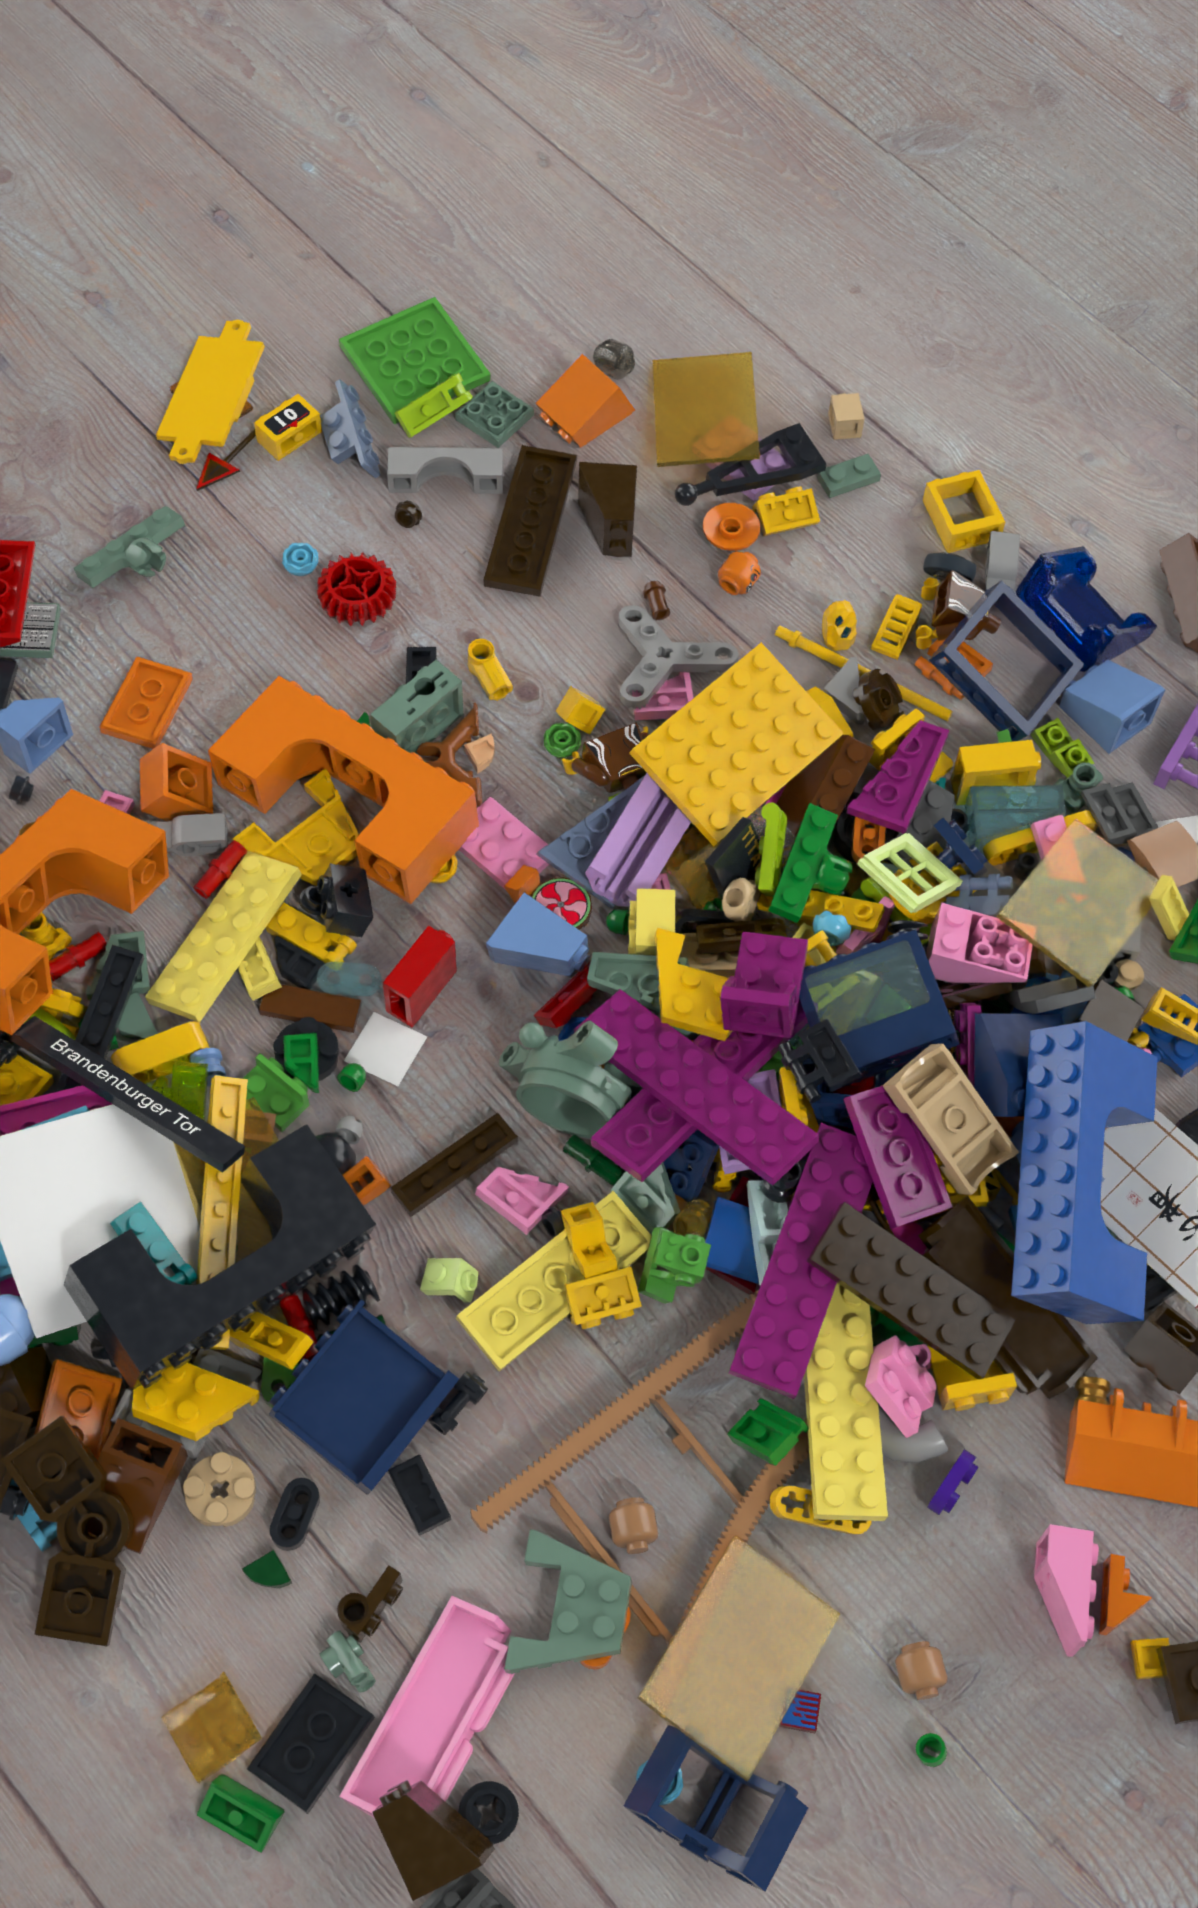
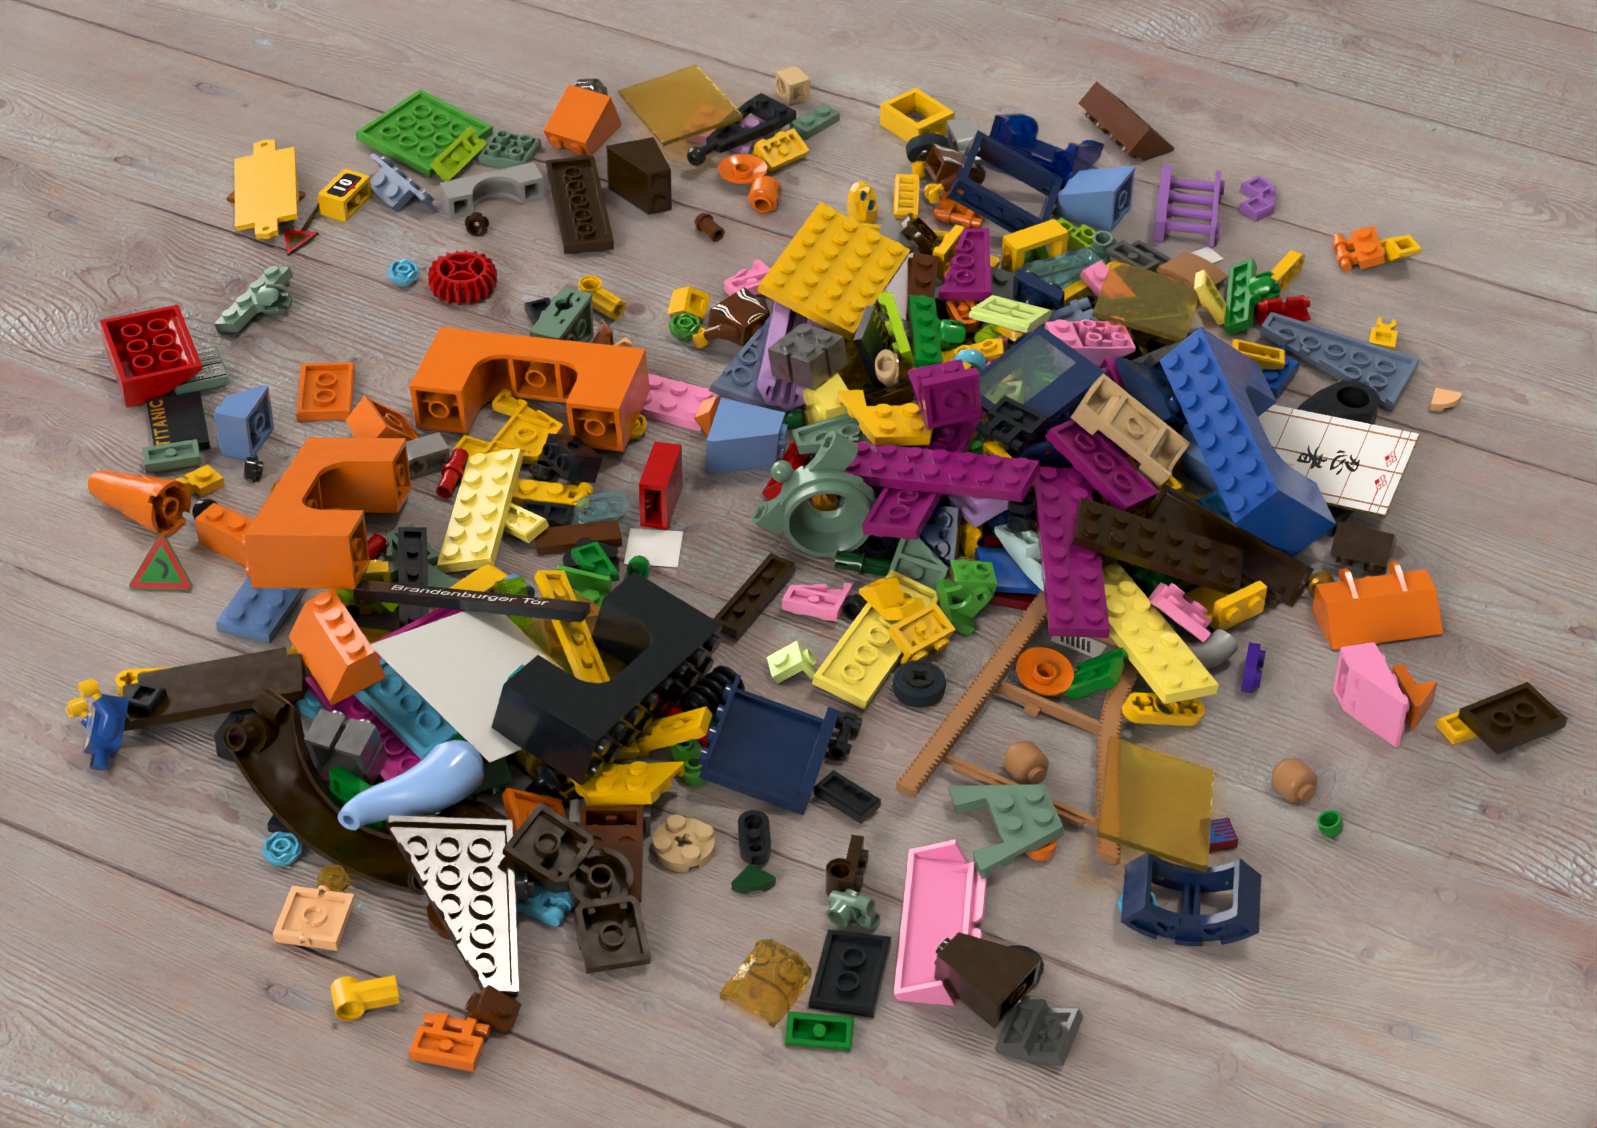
camera: 20 degrees left, 20 degrees down
(574, 1374) = (919, 684): none -> black wheel
(643, 856) = (807, 356): none -> flat silver piece
(655, 670) = (733, 257): light grey piece -> none
(732, 1396) = (1044, 671): none -> orange dish

